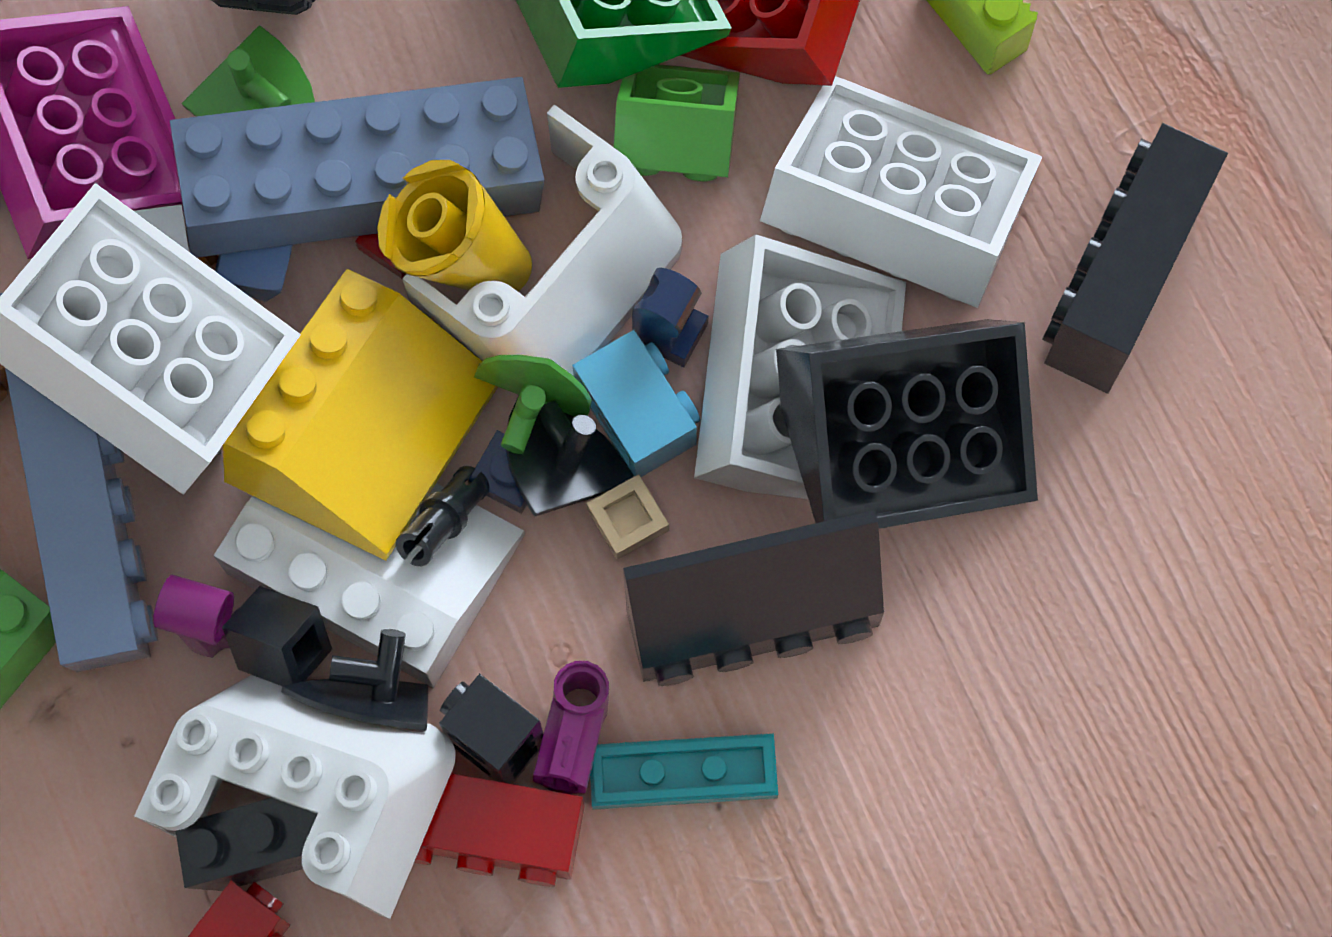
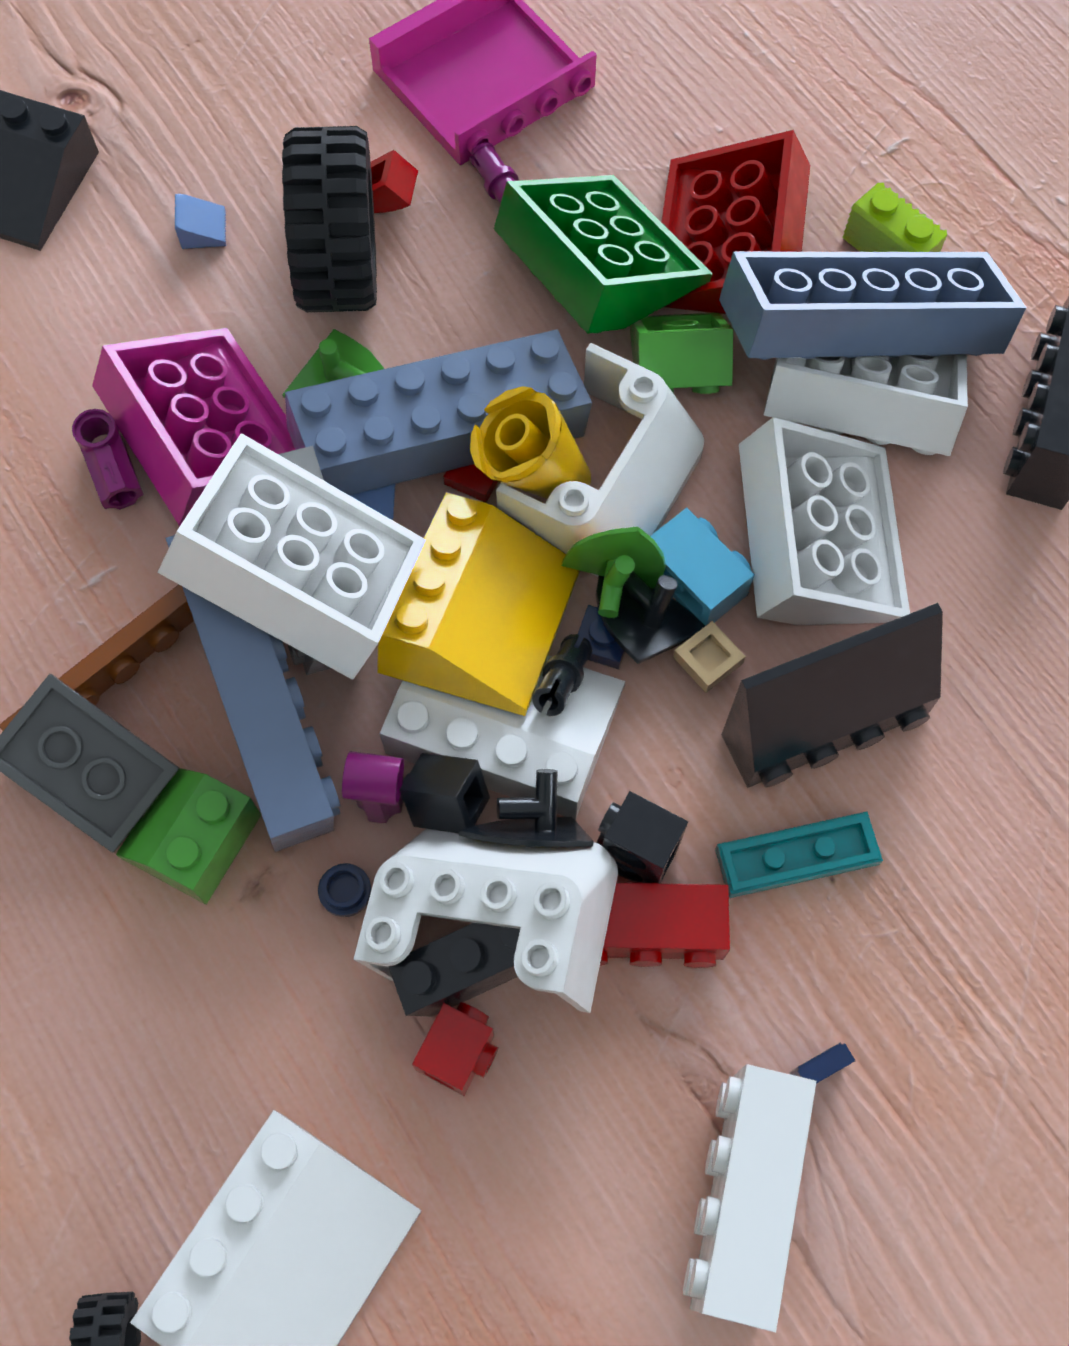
camera: 10 degrees left, 5 degrees down
(146, 729) = (344, 890): none -> dark blue plate
(572, 730) = (706, 835): magenta piece -> none
(669, 316) = (710, 489): dark blue leg -> none
(912, 102) = (869, 304): none -> sand blue brick
(912, 421) = (926, 543): black slope -> none

